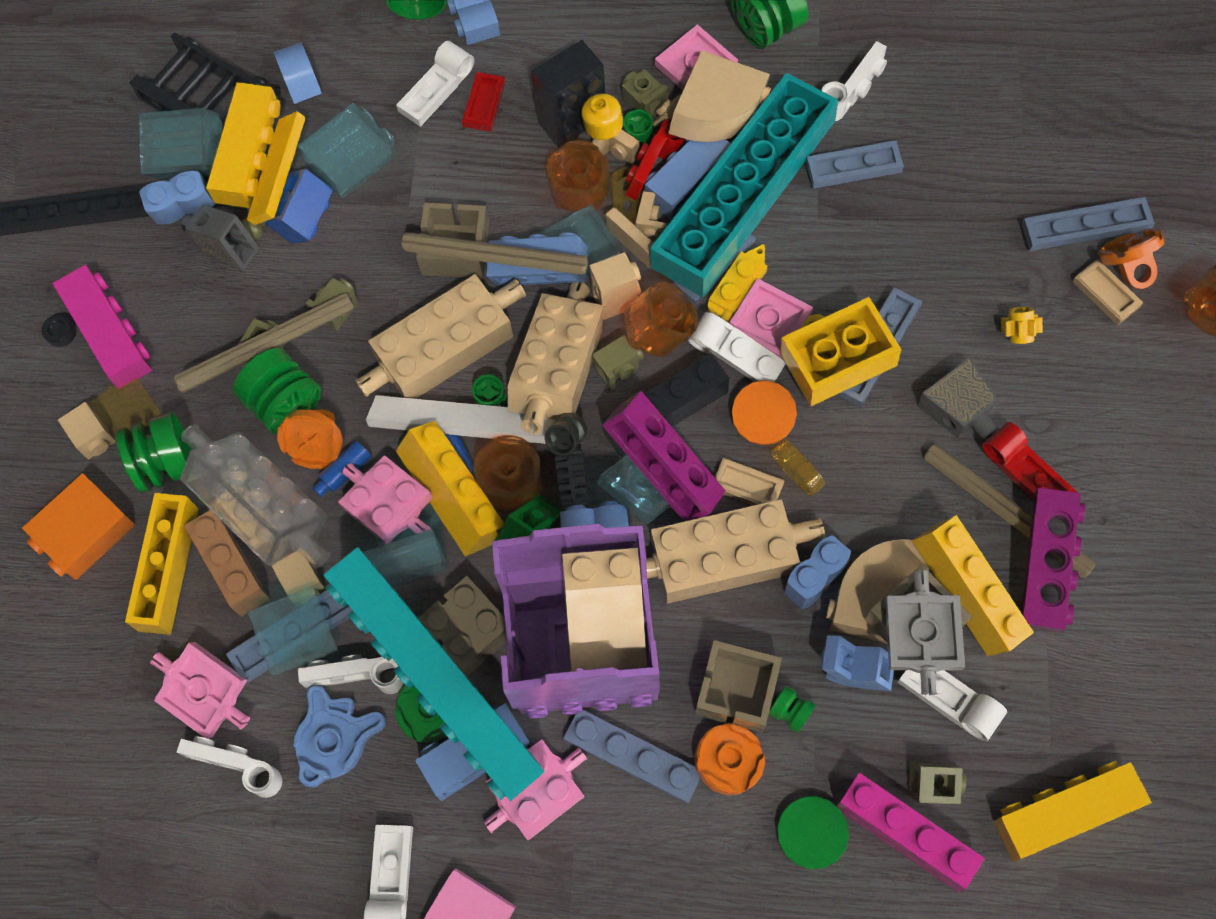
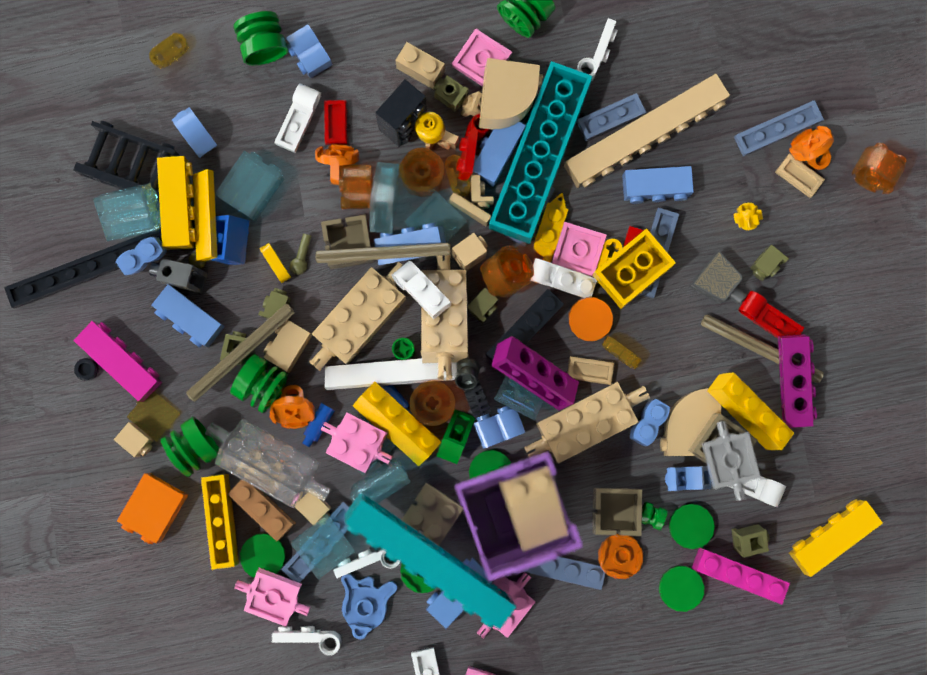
camera: 25 degrees left, 15 degrees up
(210, 625) = (262, 552): none -> green tile
(212, 291) = (187, 317): none -> medium blue brick
(334, 355) = (287, 345): none -> tan brick
(350, 250) = (275, 263): none -> yellow beam
(381, 261) = (298, 265): none -> olive bar
(469, 143) = (336, 156): none -> orange tile
(486, 174) = (355, 186): none -> clear orange brick
(517, 190) = (384, 197): none -> clear light blue brick
(533, 310) = (421, 289): none -> white plate
(614, 50) = (420, 65): none -> tan brick
(639, 125) = (452, 120): green wheel -> none
(848, 742) = (691, 526): none -> green tile
(899, 190) = (647, 130): none -> tan brick
(900, 258) = (657, 184): none -> medium blue brick
(1040, 392) = (768, 263): none -> olive brick

